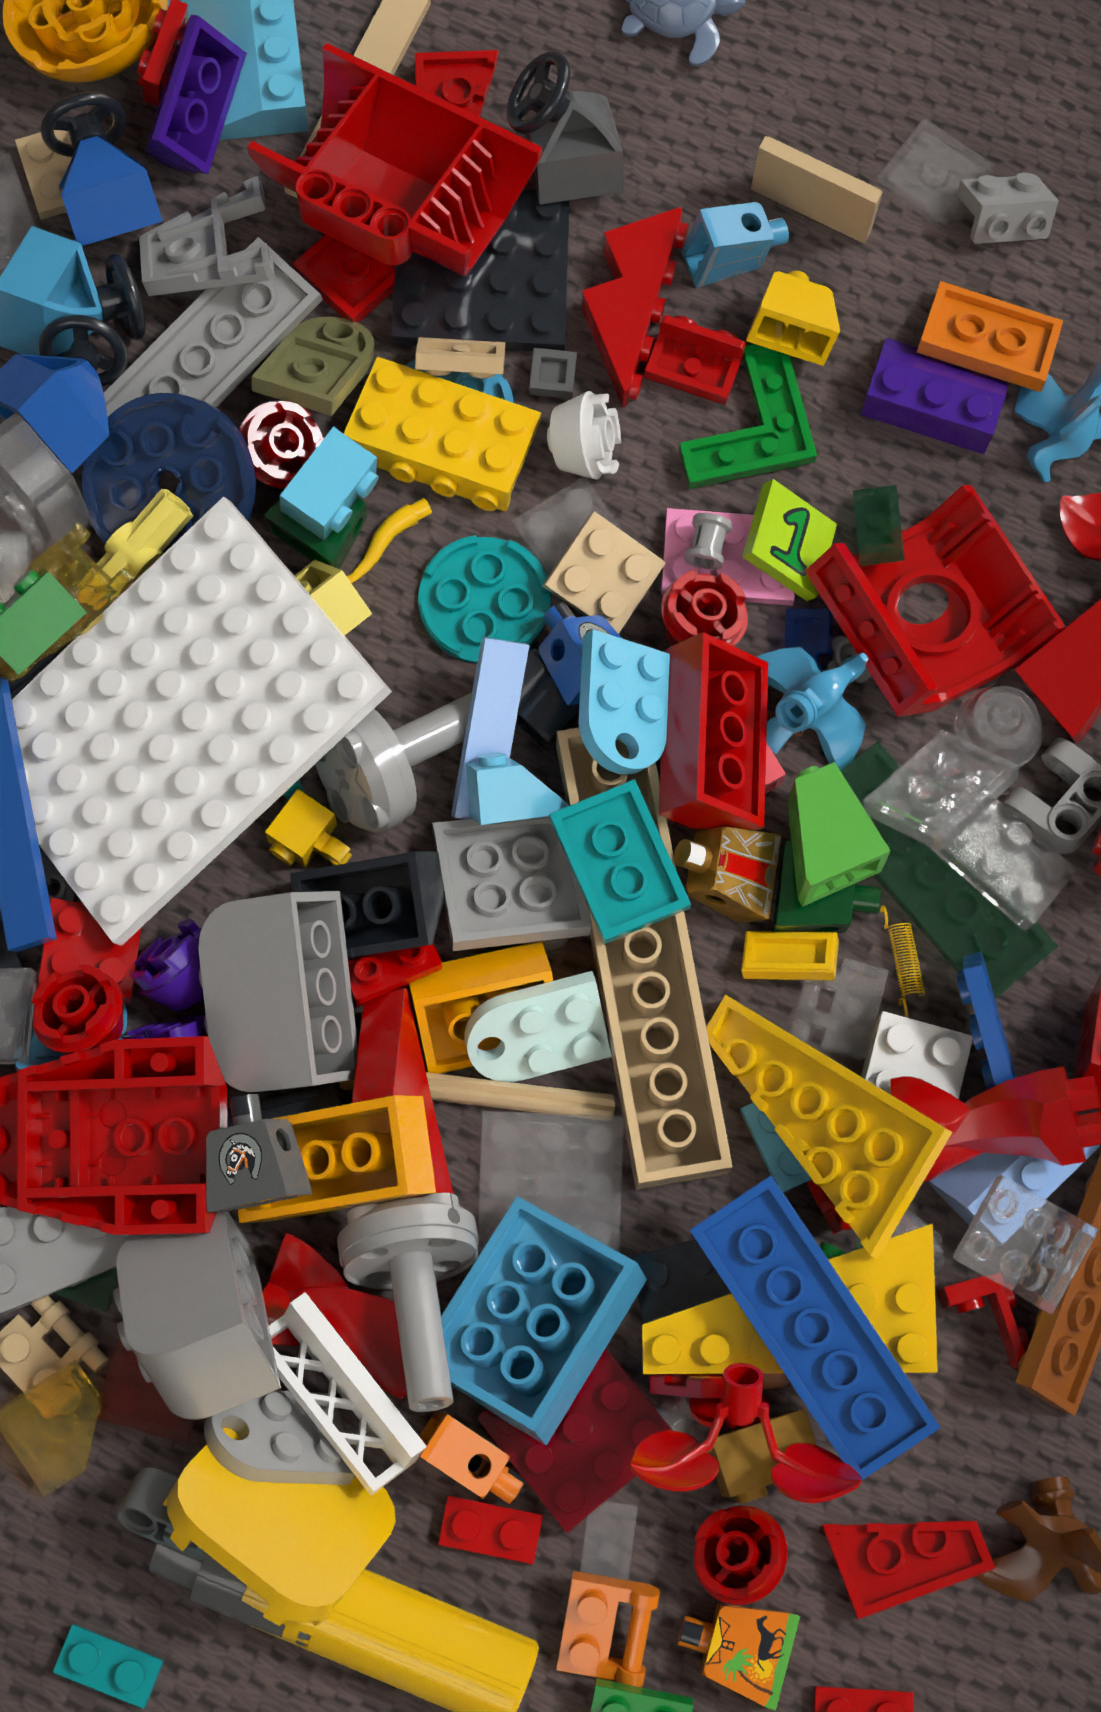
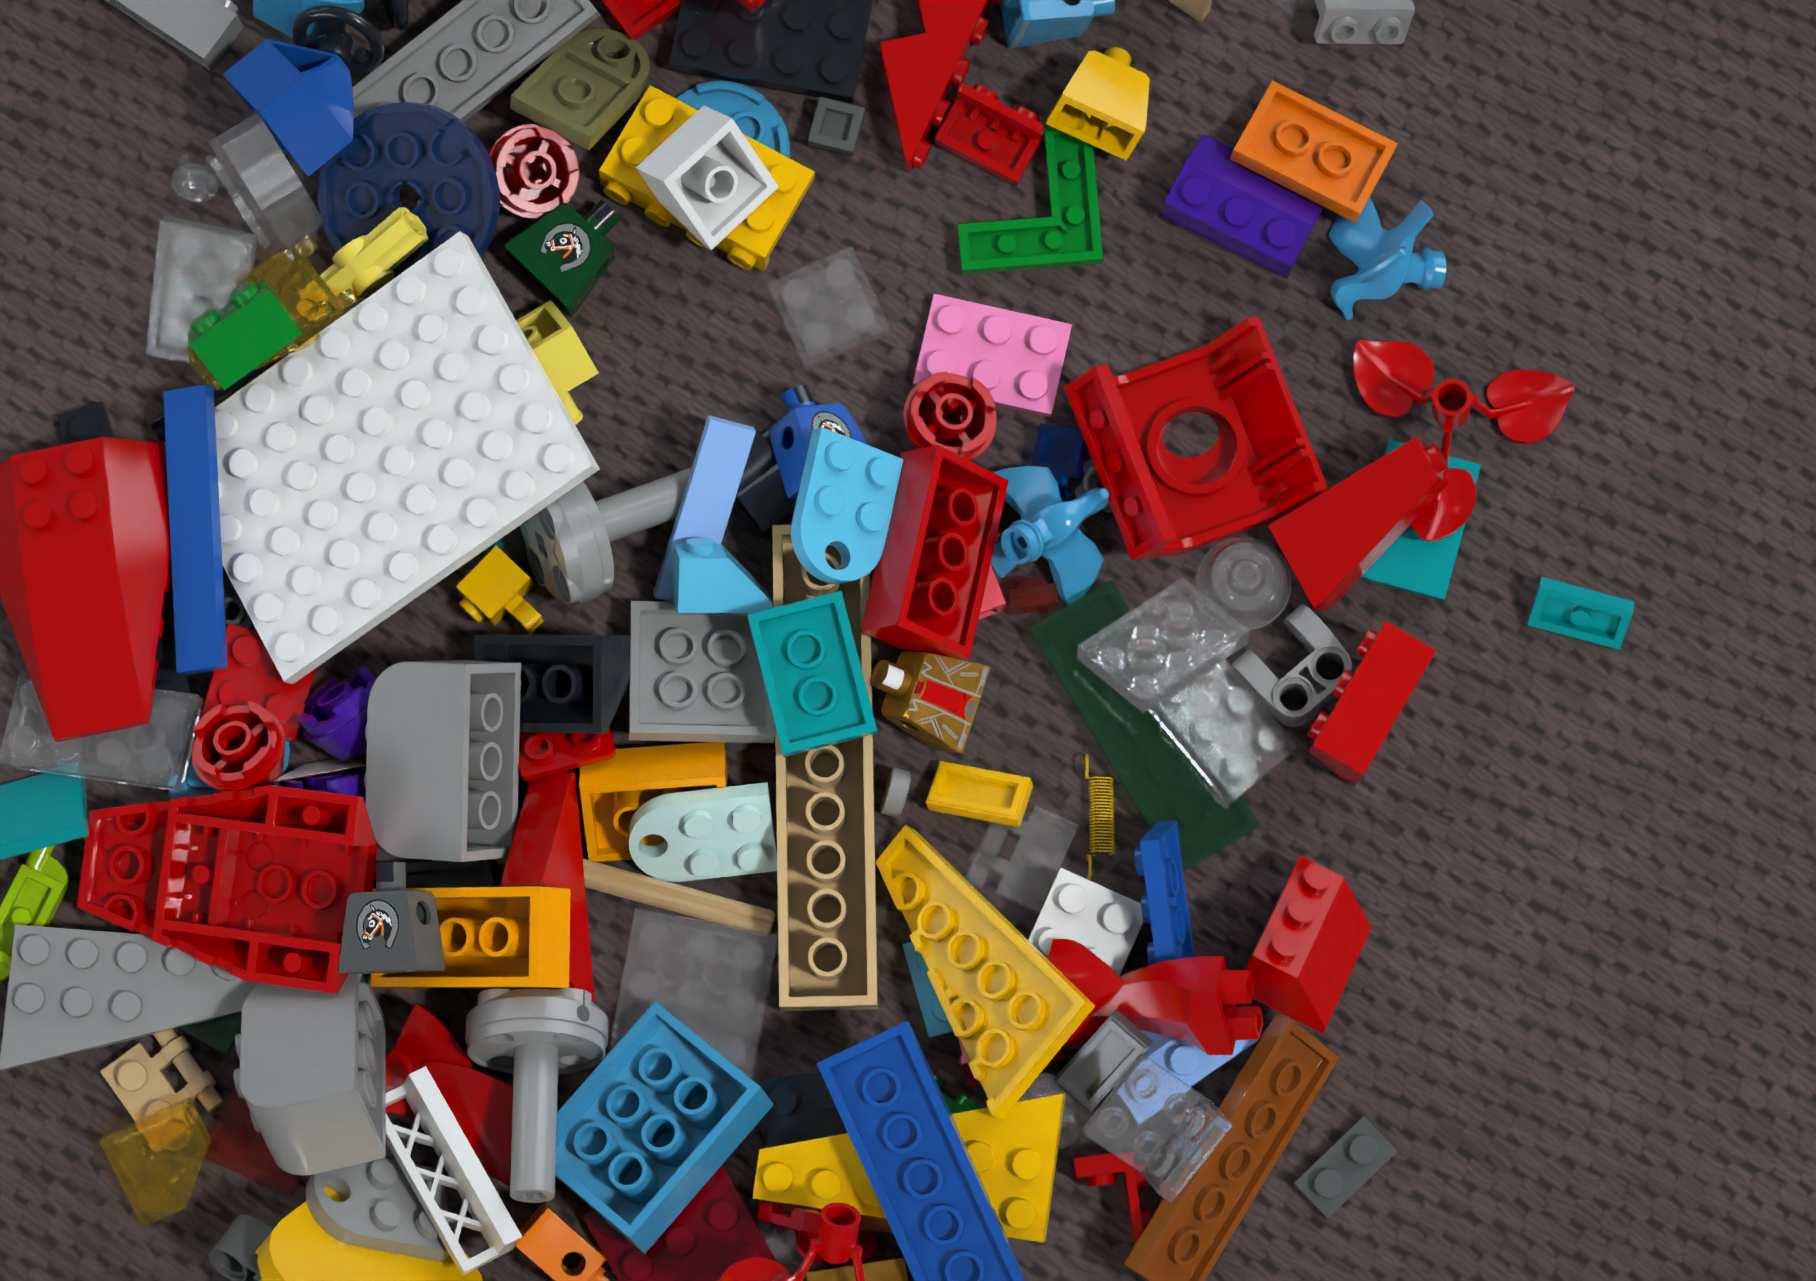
camera: 15 degrees right, 5 degrees up
(152, 1023) = (321, 767): none -> white sticker
(329, 484) = (576, 226): medium azure brick -> none
(392, 526) = (639, 272): yellow animal -> none
(442, 356) = (739, 97): tan plate -> none
(446, 423) = (708, 176): none -> white slope
(482, 591) = (724, 362): teal tile -> none
(584, 435) = (856, 204): white cone -> none
(604, 572) = (853, 357): tan plate -> none
(708, 541) = (967, 340): light grey bush -> none
(710, 966) = (895, 792): none -> light grey tile
(787, 538) = (1053, 347): lime tile -> none
(803, 759) = (1032, 597): none -> clear red plate
(824, 915) = (1021, 732): dark green torso -> none
(830, 835) = (1038, 676): bright green slope -> none
(878, 525) = (1154, 345): clear green plate -> none
(959, 1187) = (1103, 1060): none -> dark grey tile

